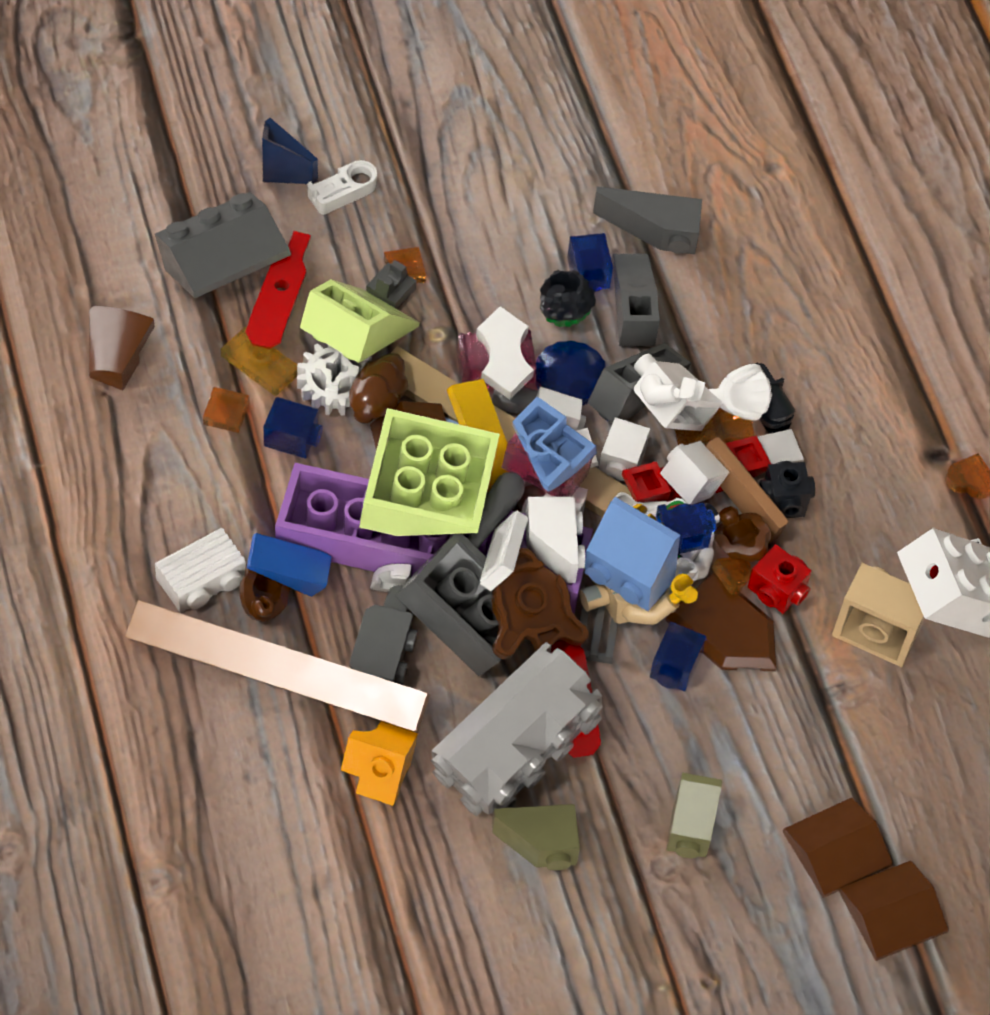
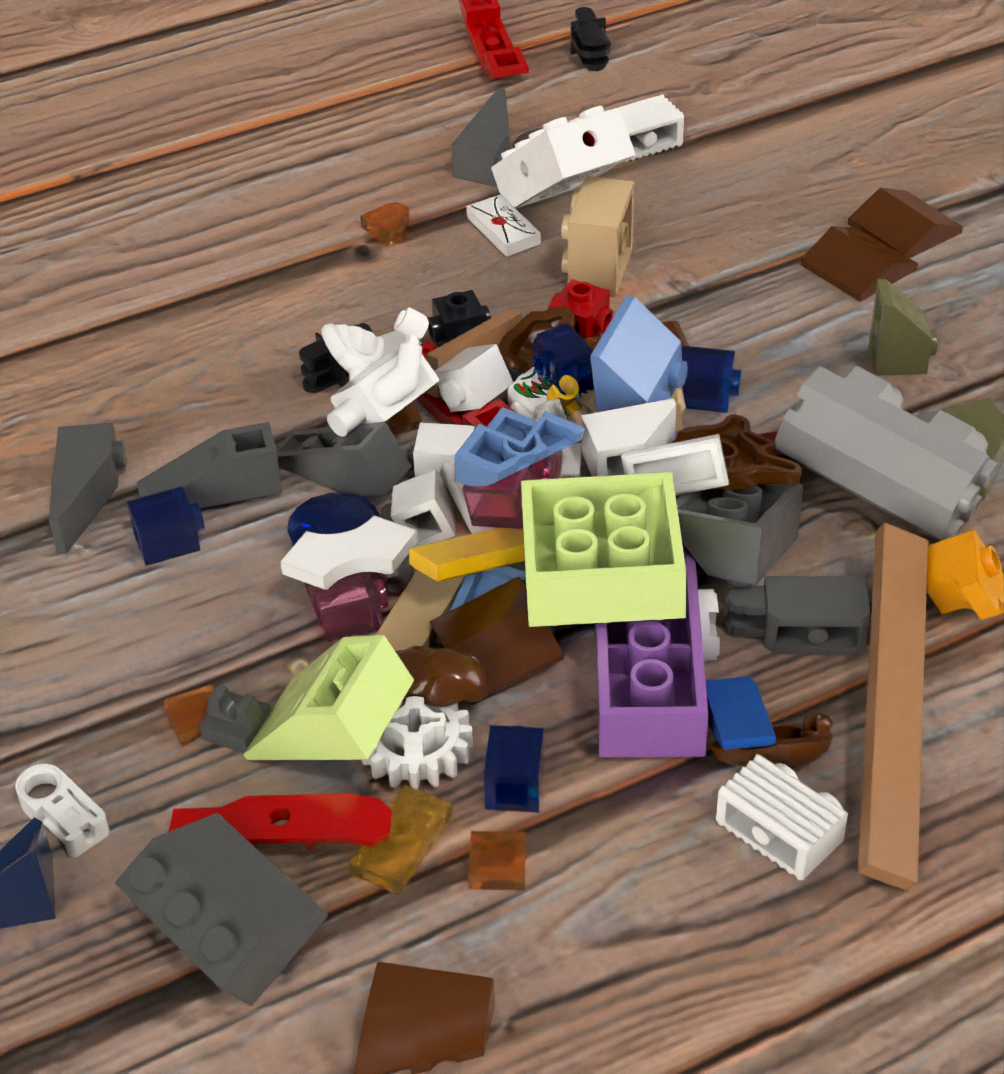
camera: 95 degrees left, 15 degrees down
(566, 298) = (235, 527): black piece -> none

